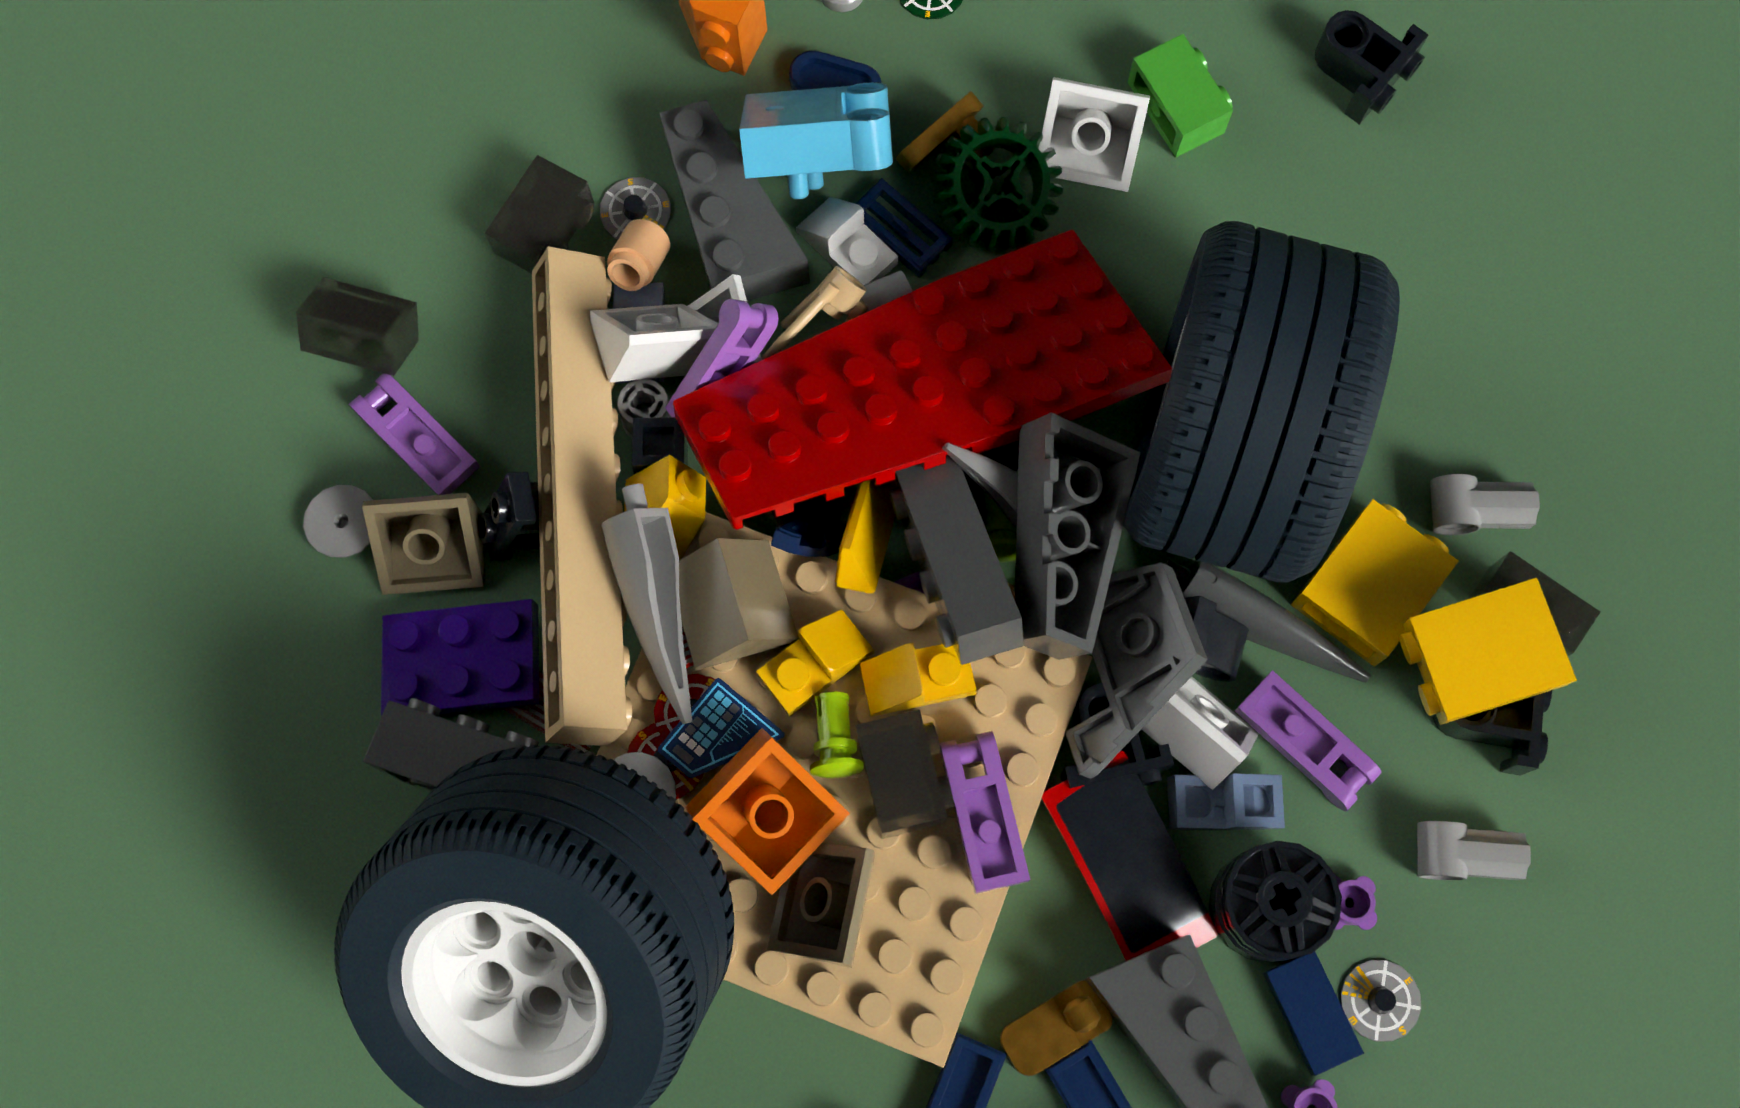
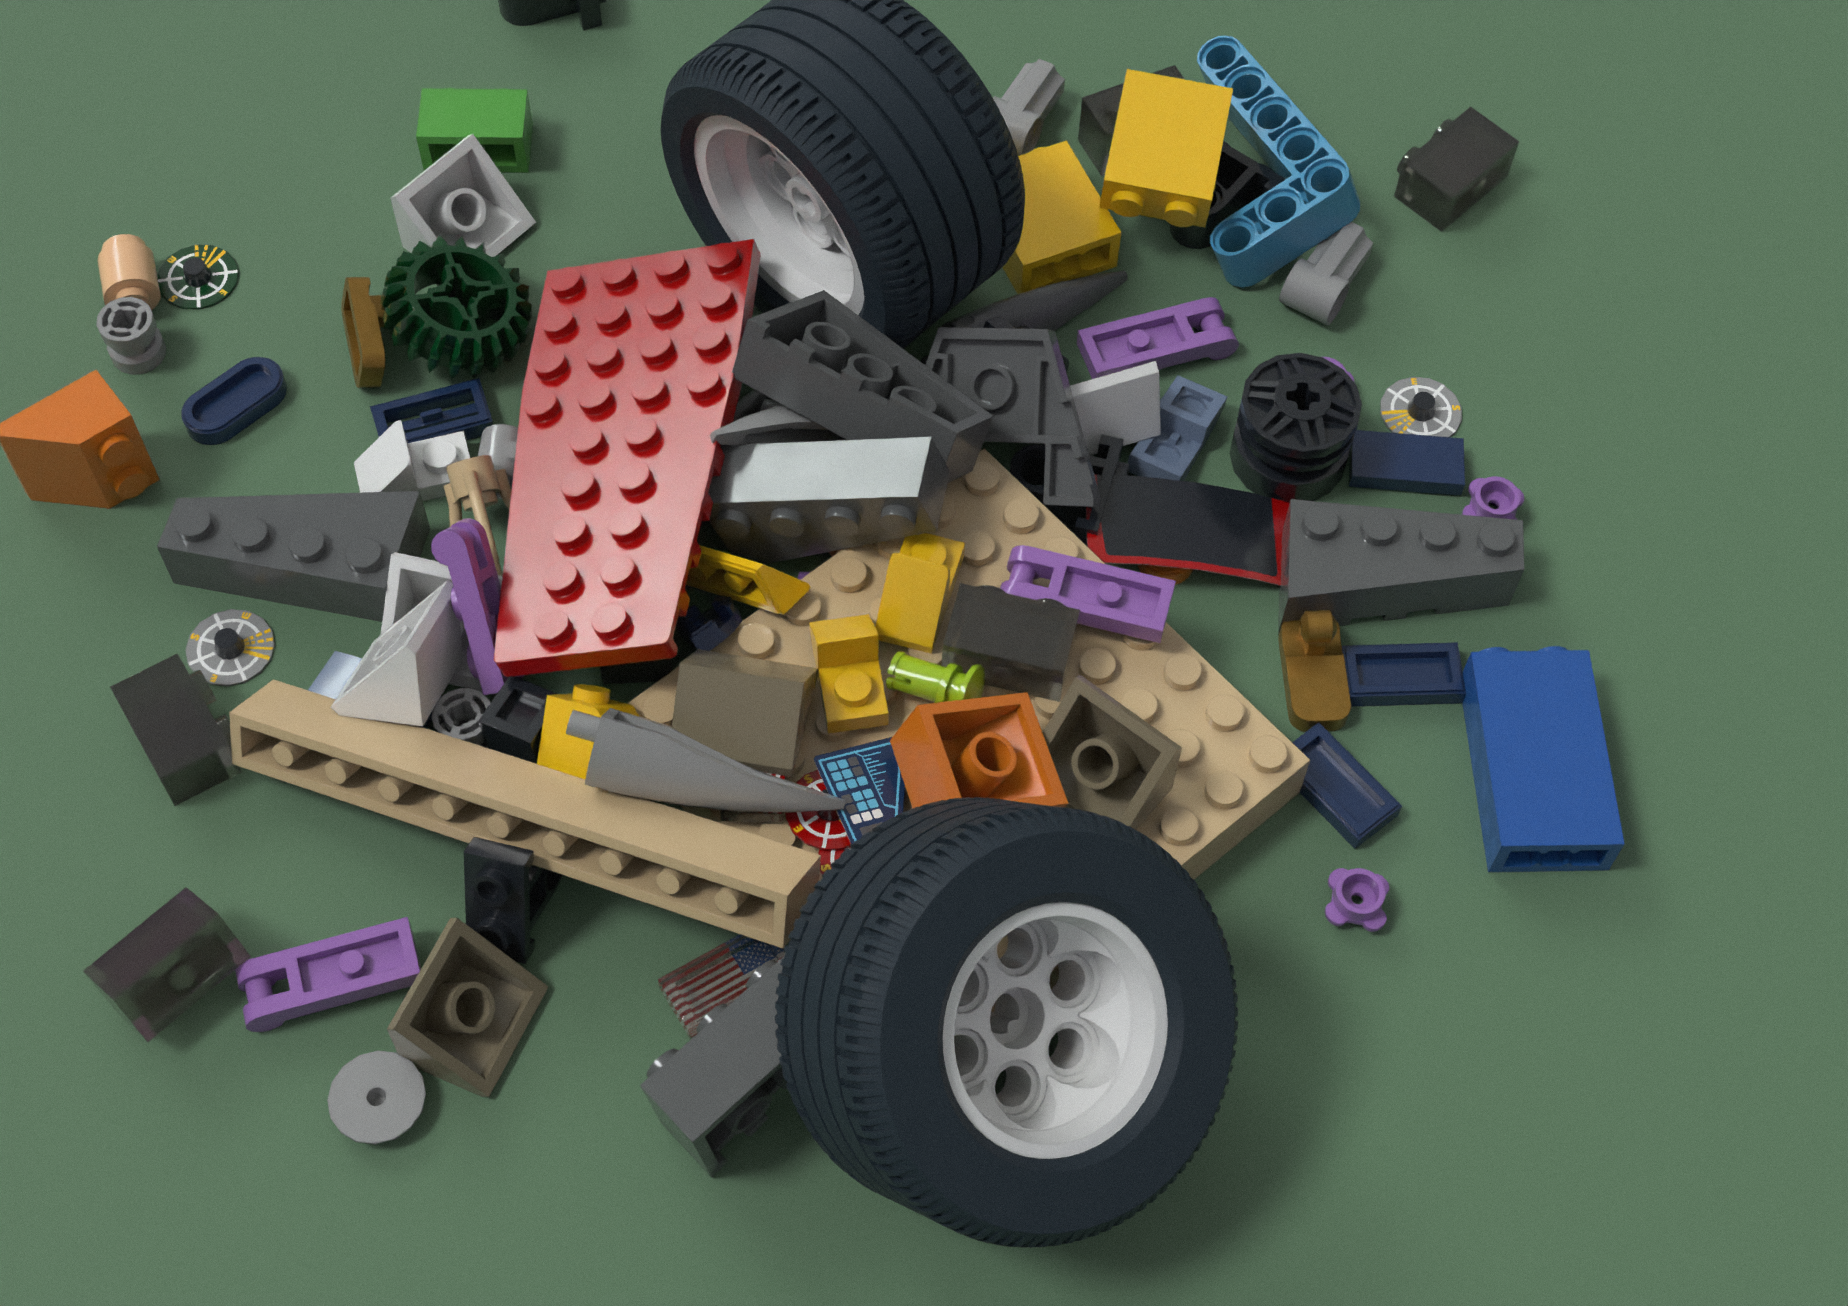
camera: 65 degrees left, 15 degrees down
(462, 657) = (612, 1027): dark purple plate -> none
(637, 254) = (291, 651): light nougat brick -> none
(815, 133) = (292, 418): medium azure piece -> none
(1569, 753) = (1317, 185): none -> dark azure beam
(1664, 915) = (1455, 168): none -> clear smoke brick

